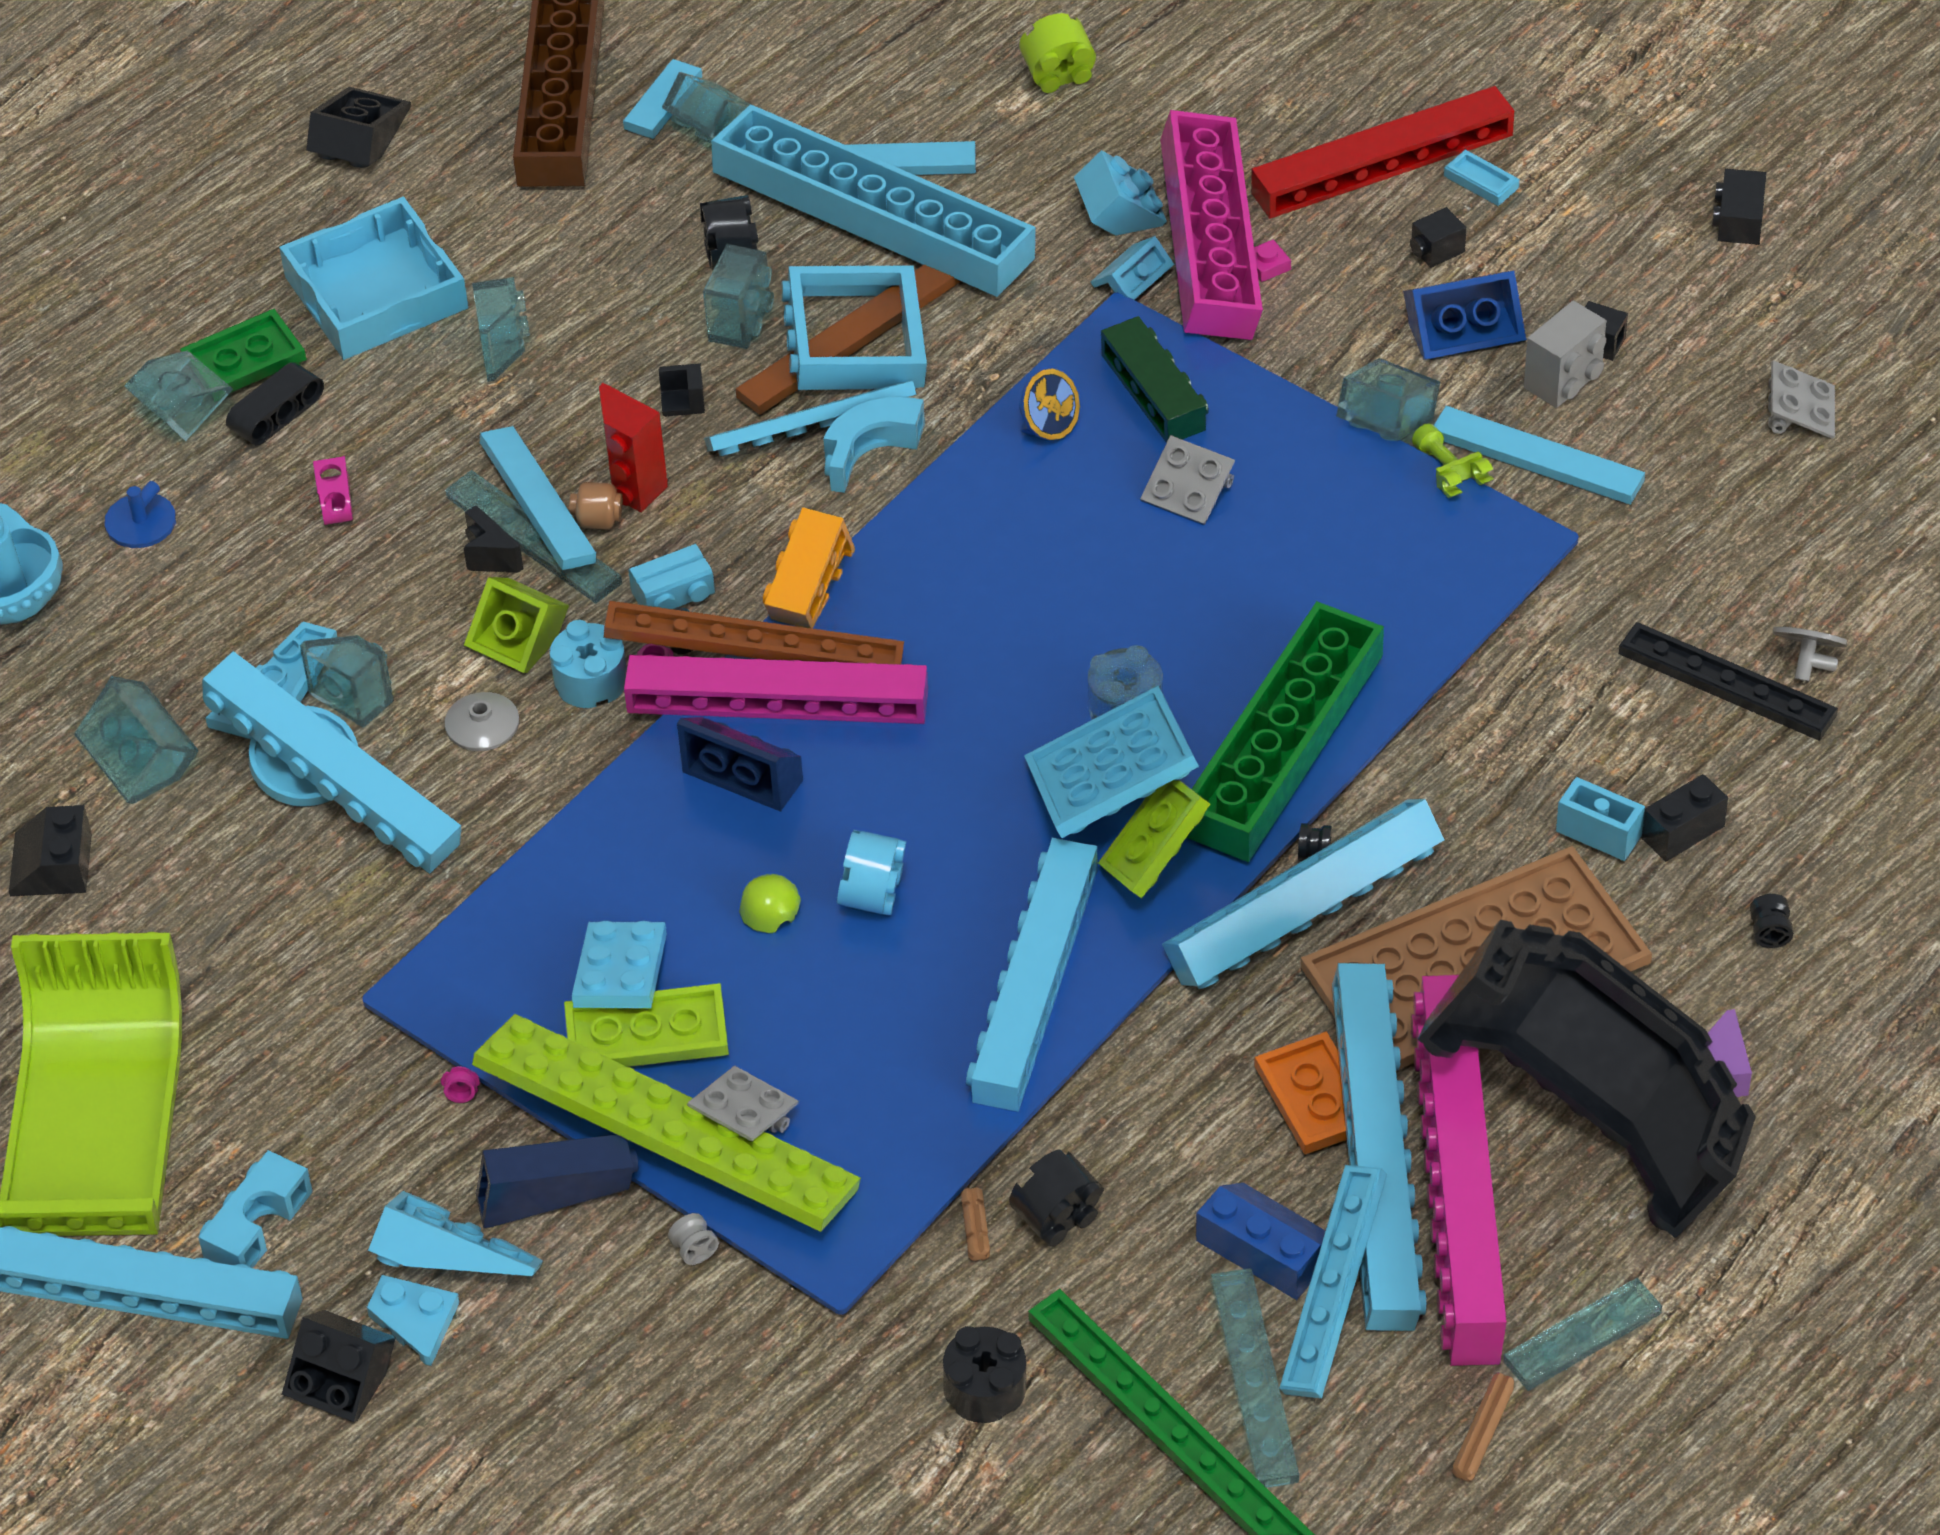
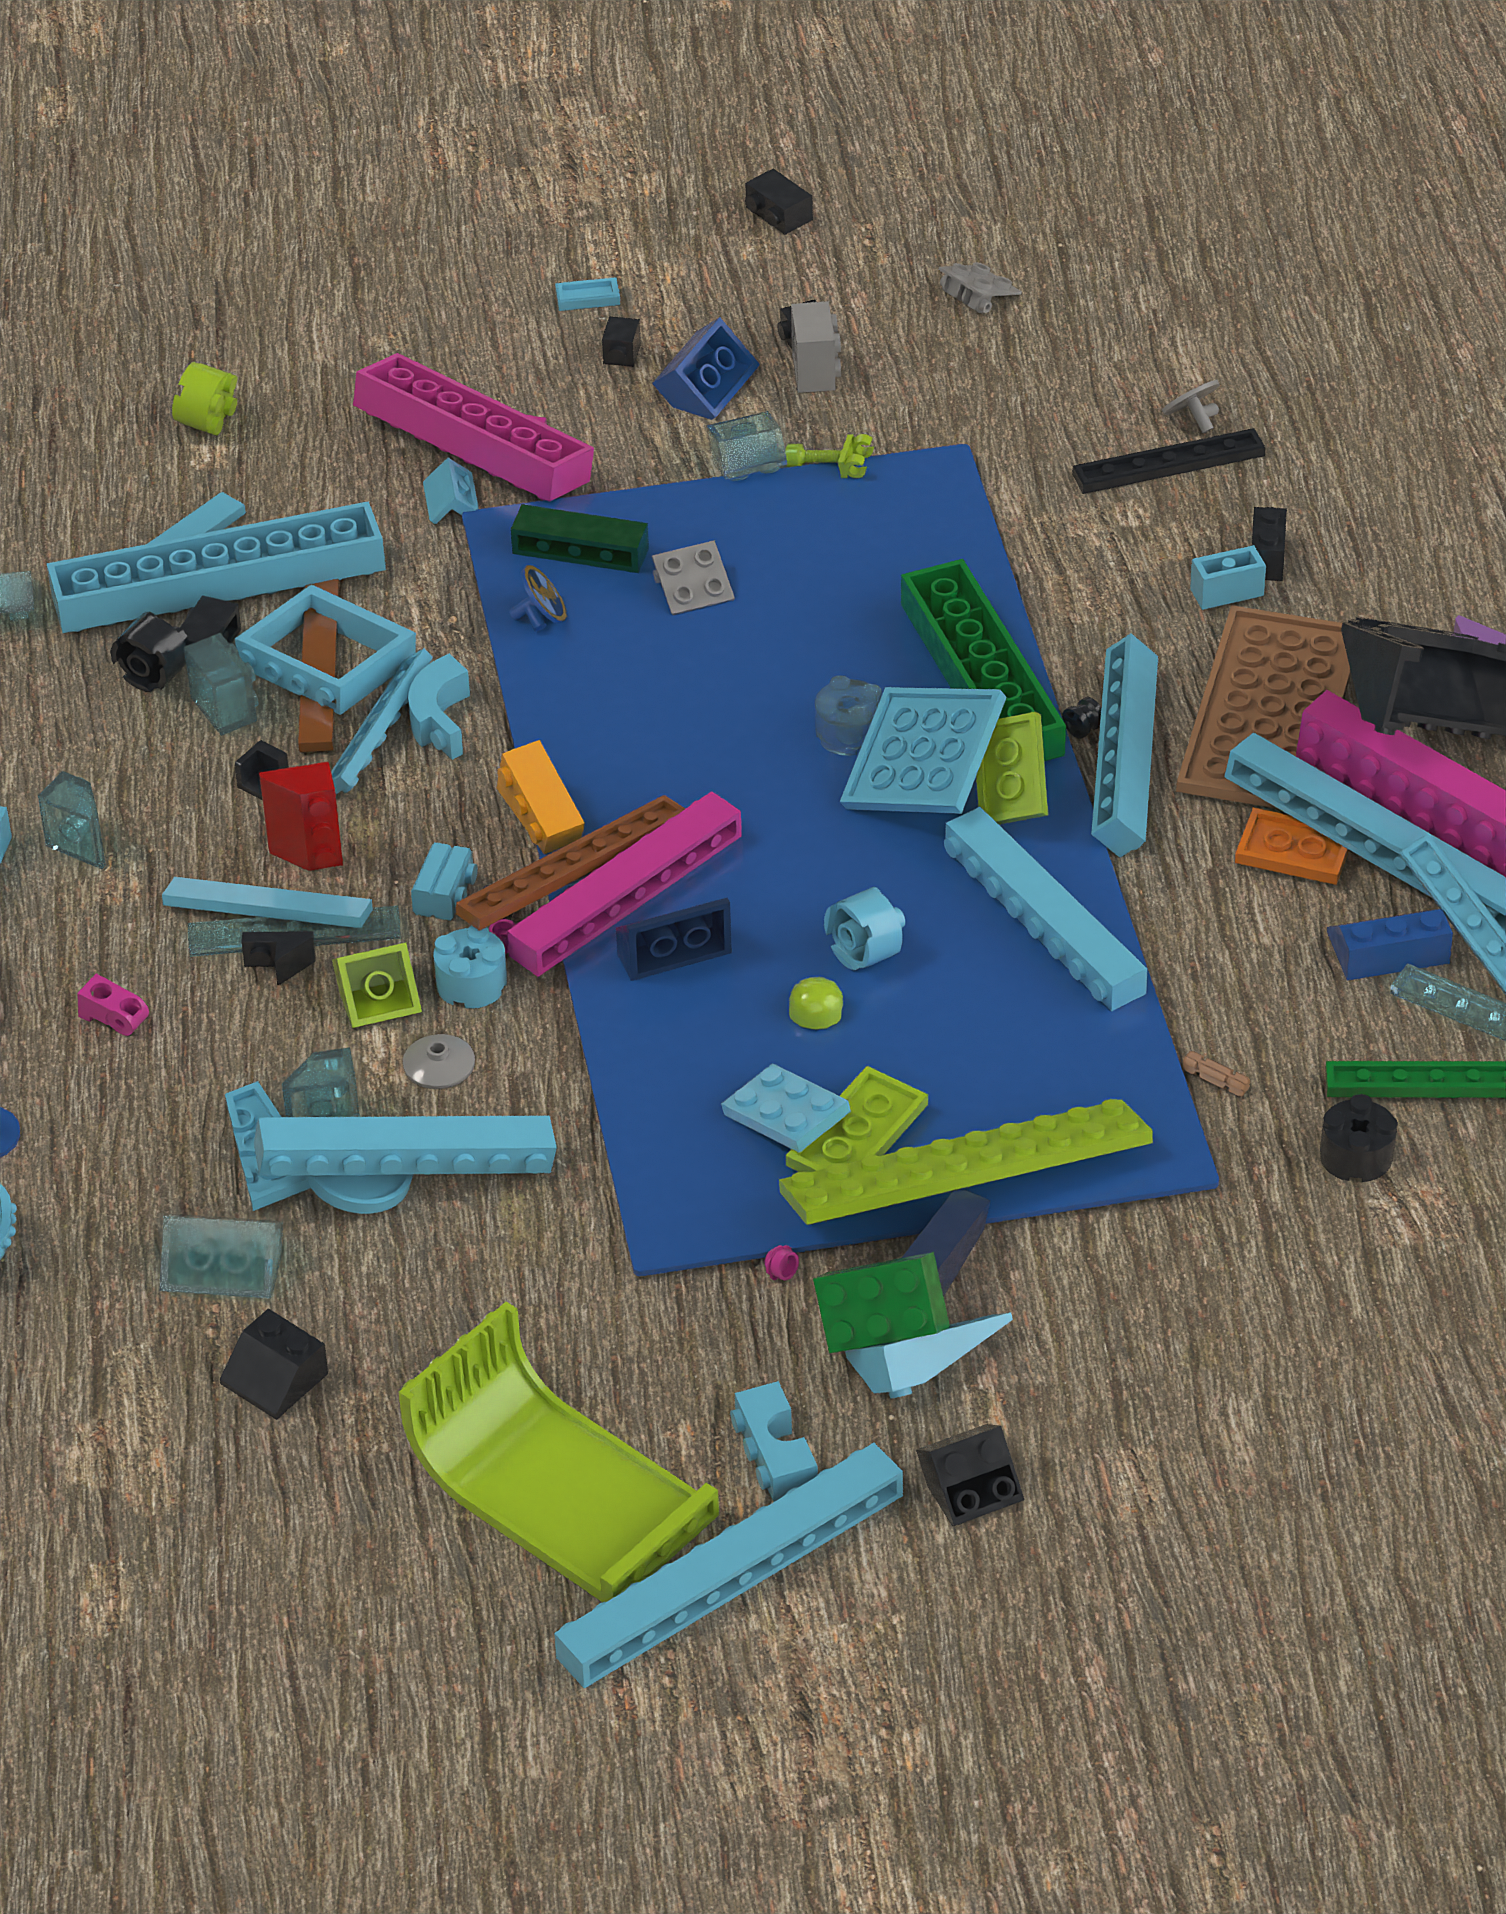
camera: 50 degrees left, 5 degrees down
(413, 1314) = (962, 1409): medium azure wing -> none
(438, 1173) = (881, 1302): none -> green brick
(596, 505) = (320, 873): medium nougat head -> none
(693, 1238) = (1071, 1219): light grey wheel -> none
(744, 1104) = (995, 1112): light grey hinge -> none
(801, 244) = (210, 618): none -> black brick
(1057, 1197) = (1254, 1011): black brick -> none
(1119, 195) = (376, 454): medium azure slope -> none
(1382, 152) = (510, 312): red brick -> none
(1540, 455) = (875, 418): medium azure tile -> none
(1771, 927) = (1396, 561): black wheel -> none

